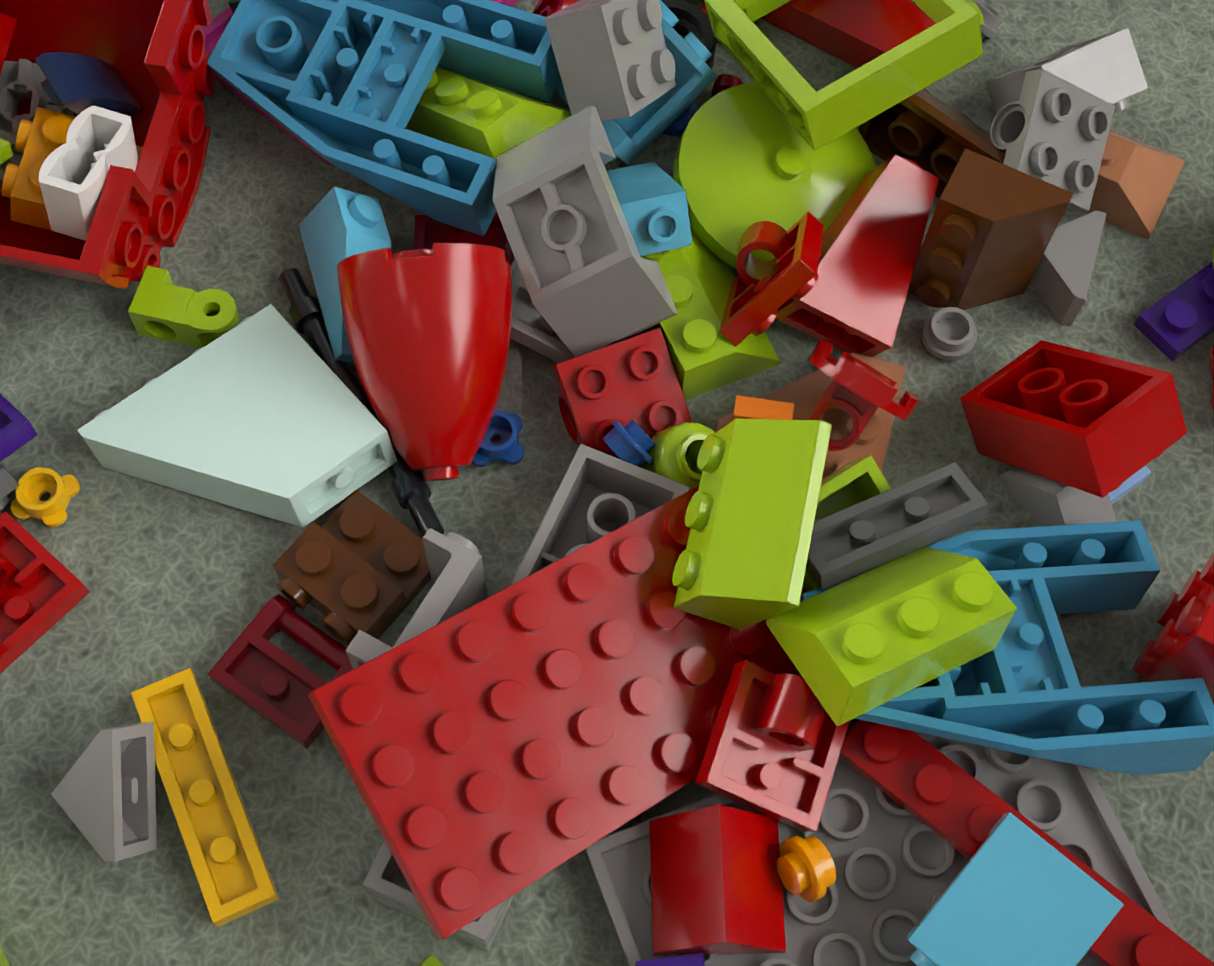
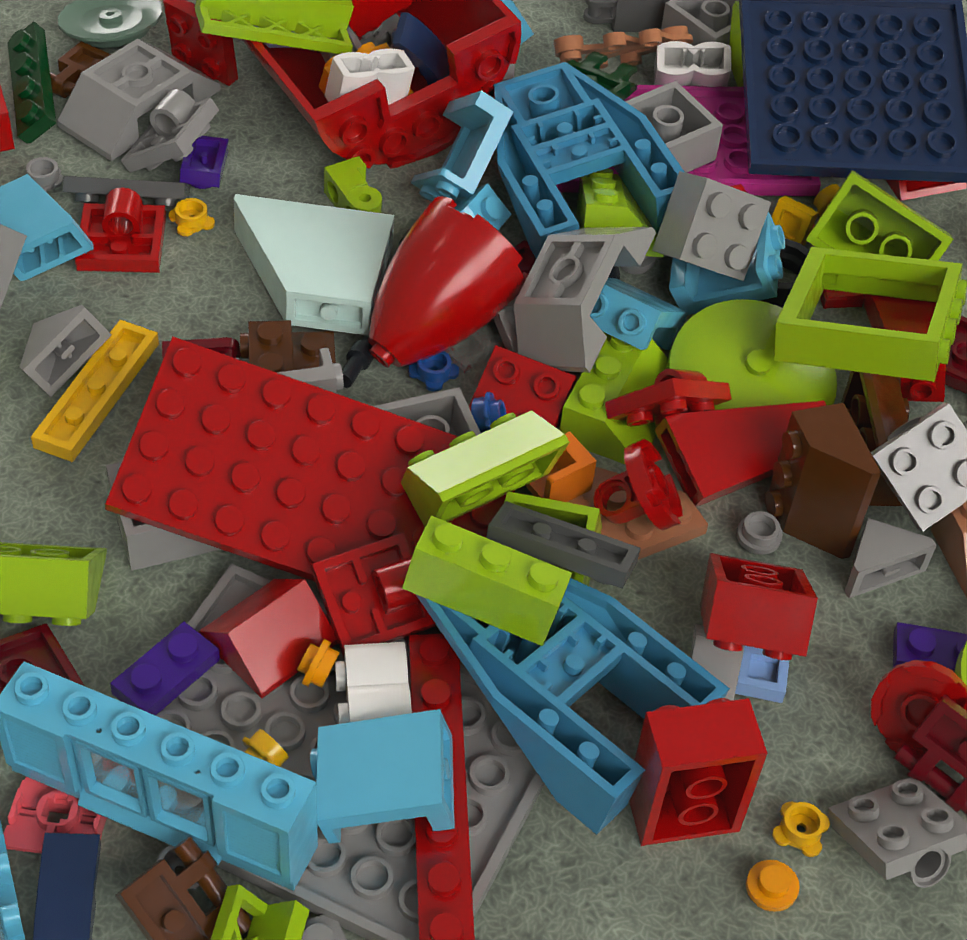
camera: 45 degrees right, 15 degrees down
(265, 162) = (481, 129): none -> medium azure panel
(892, 843) = (373, 681): none -> white brick

